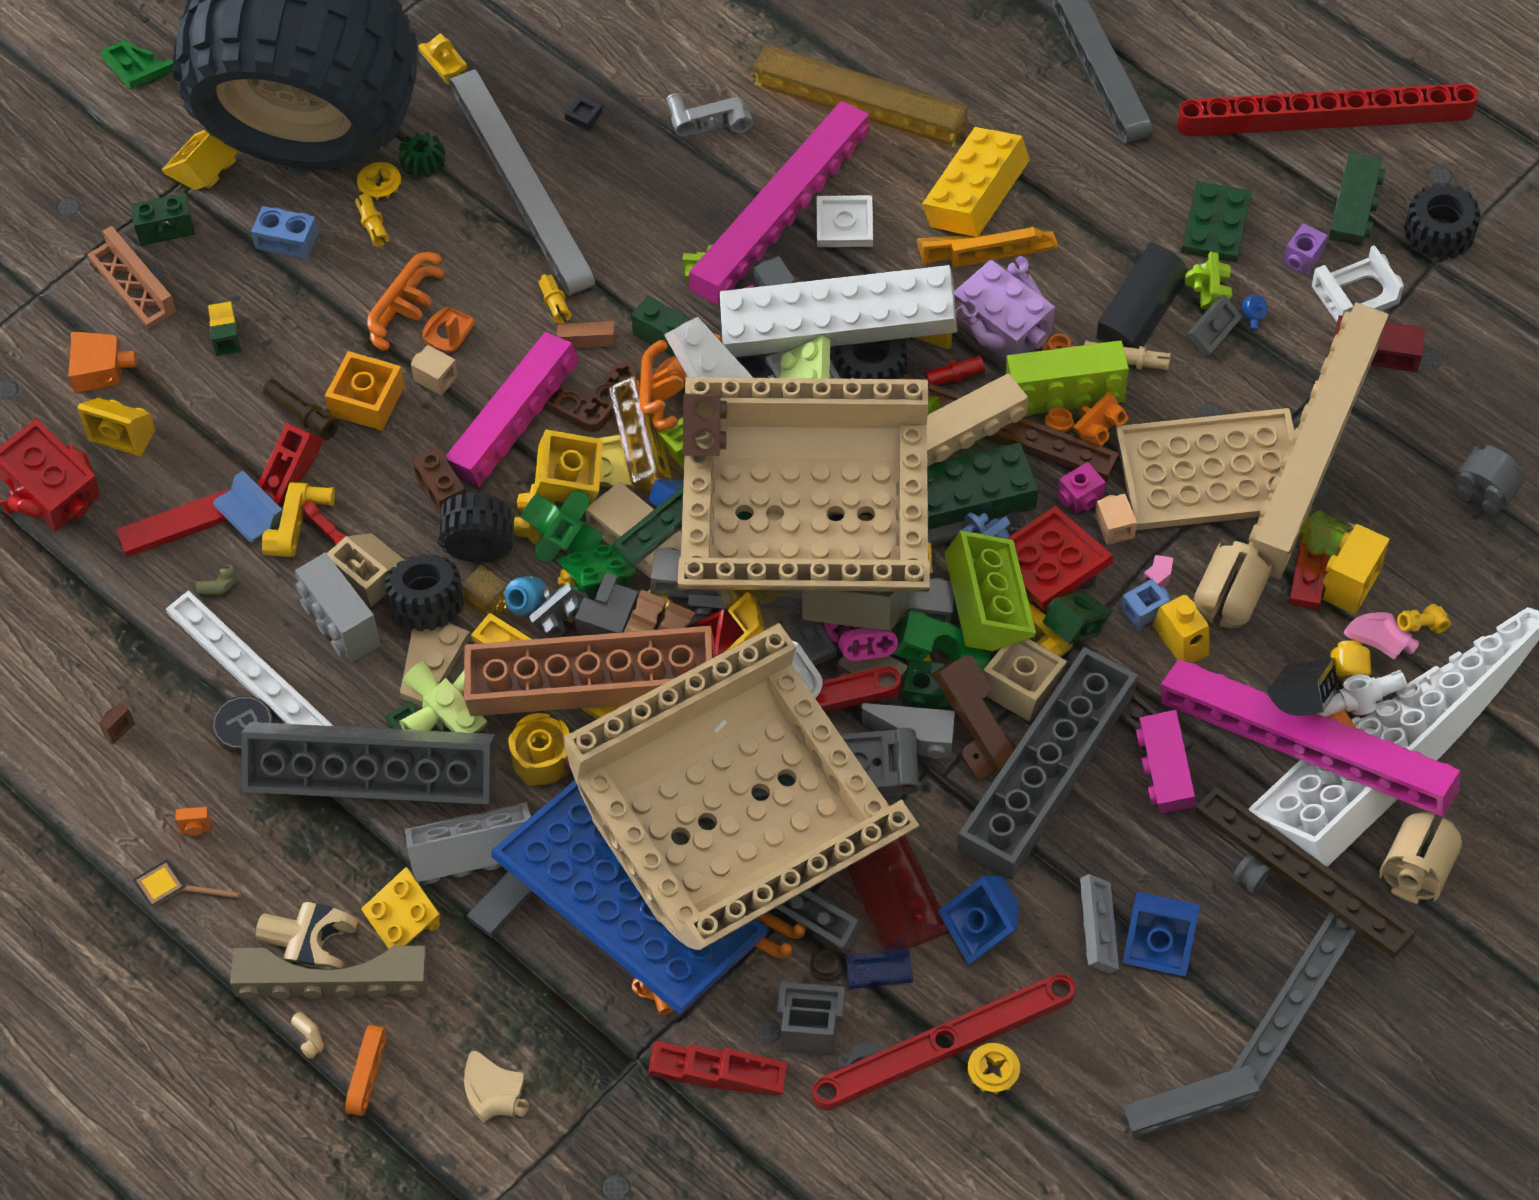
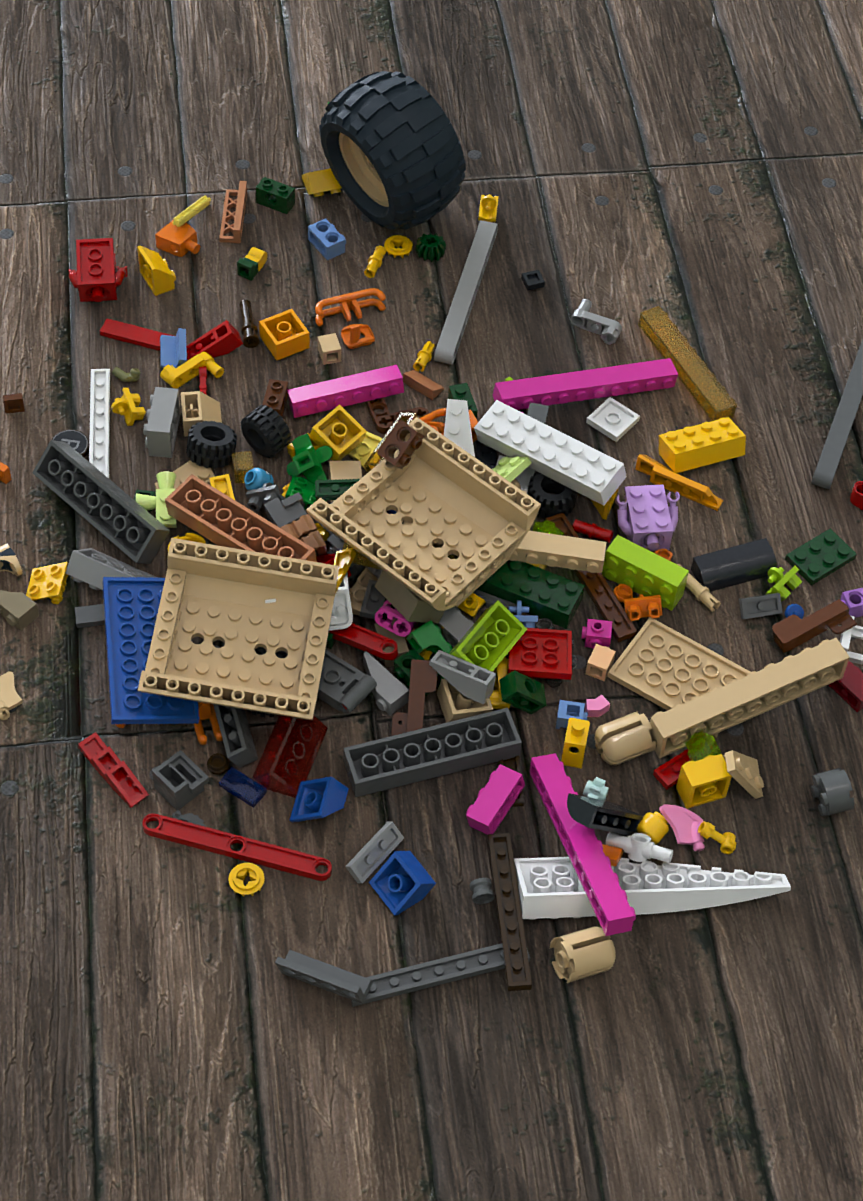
camera: 35 degrees right, 5 degrees down
(82, 313) = (191, 211): none -> light yellow axle
(265, 622) = (126, 407): none -> yellow hips
(1015, 646) = (466, 677): none -> light grey slope
(1256, 668) = (596, 789): none -> light aqua gear
(1278, 326) = (795, 631): none -> reddish brown piece
(1391, 526) = (745, 772): none -> tan wing

